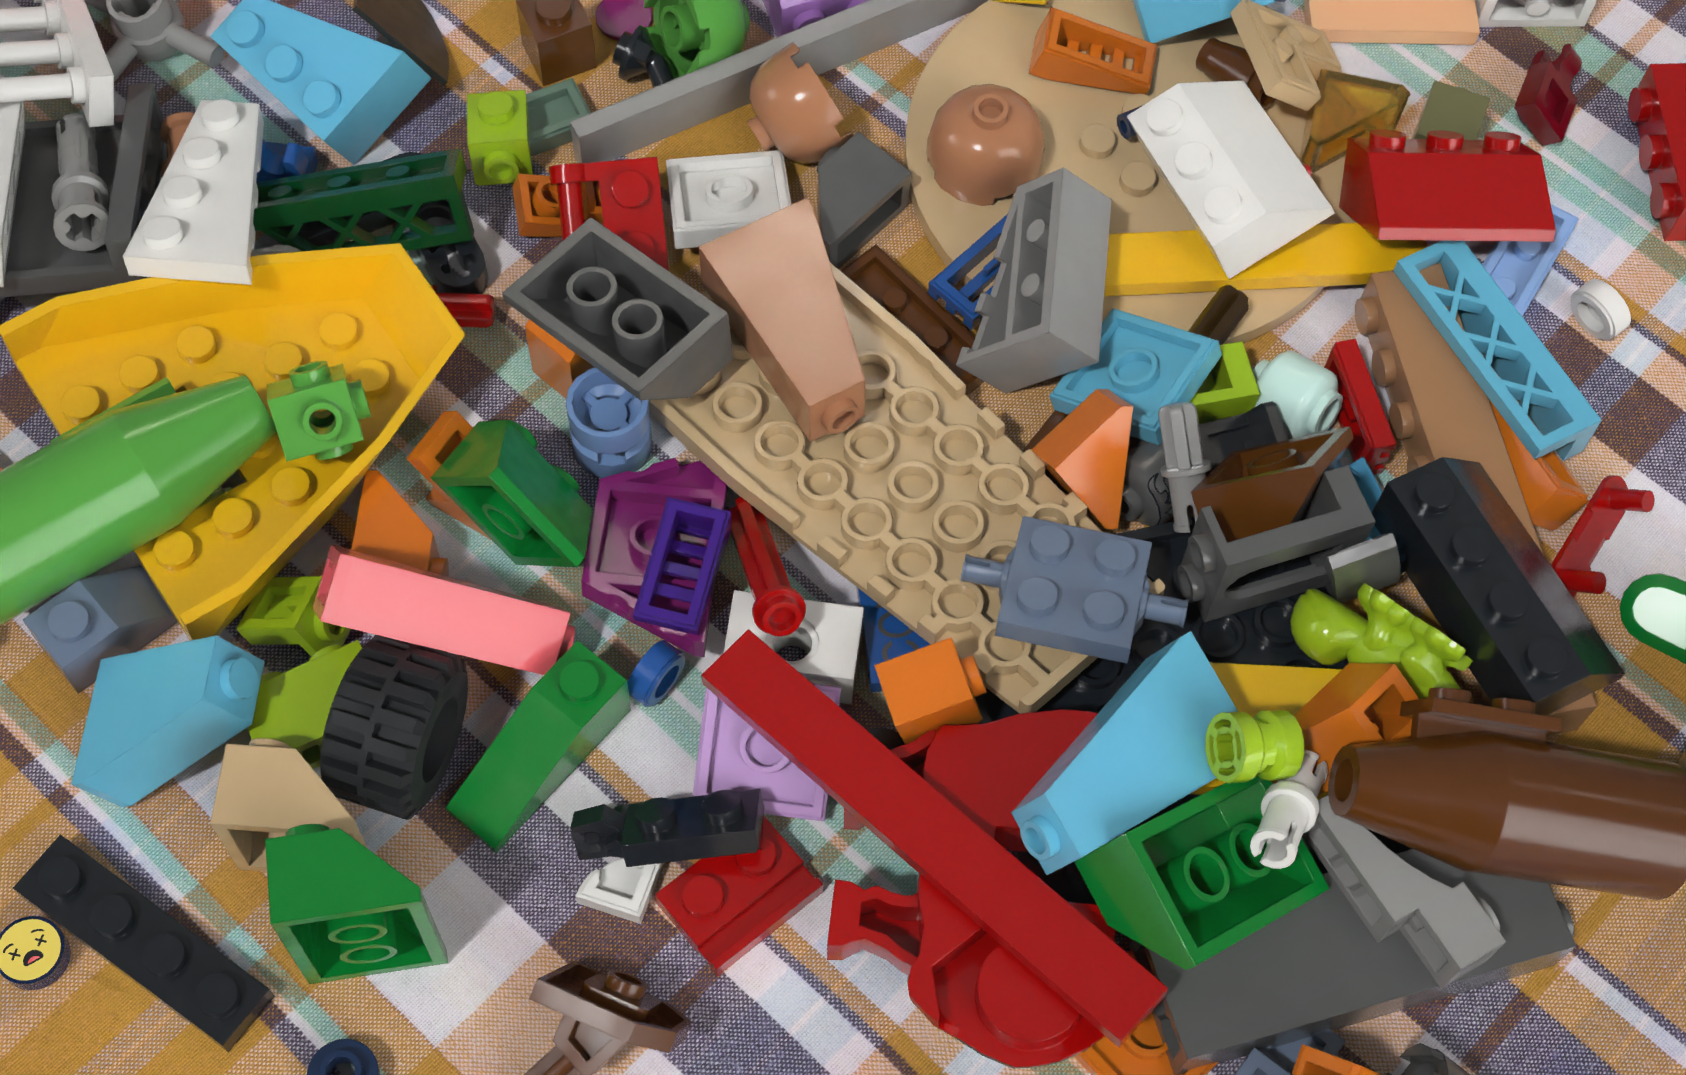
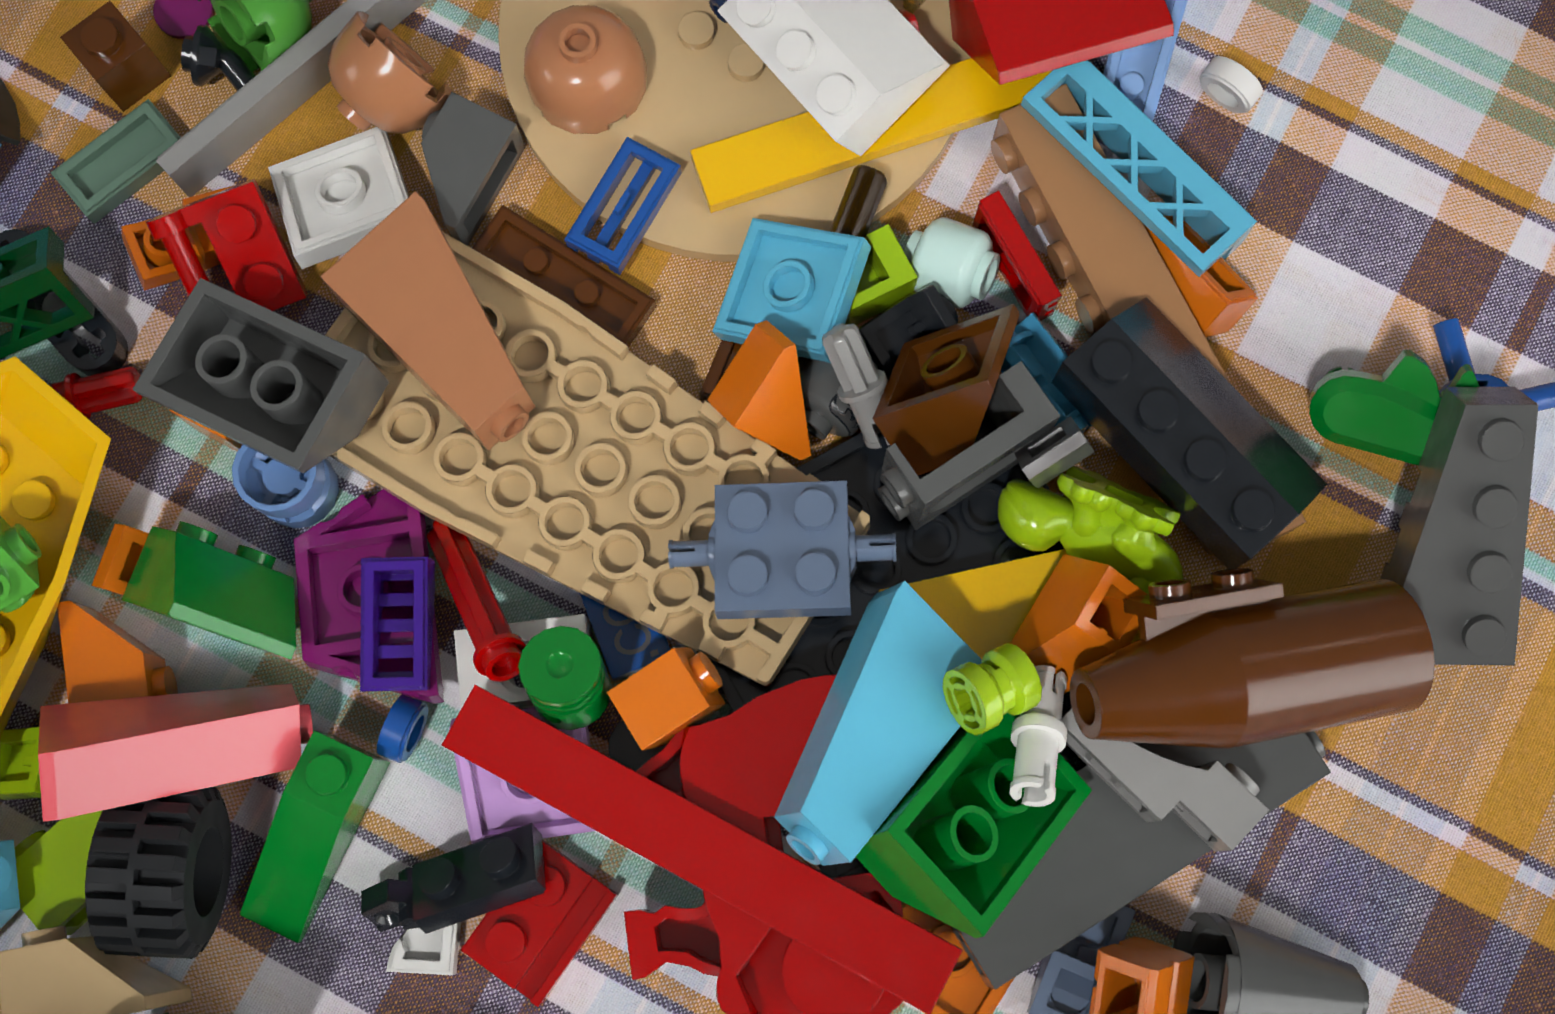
camera: 10 degrees left, 15 degrees up
(498, 136) = (89, 188): lime bracket -> none
(838, 644) = (565, 677): none -> green piece
(1047, 288) = (683, 218): light grey wedge -> none
(1593, 529) = (1269, 315): red piece -> none

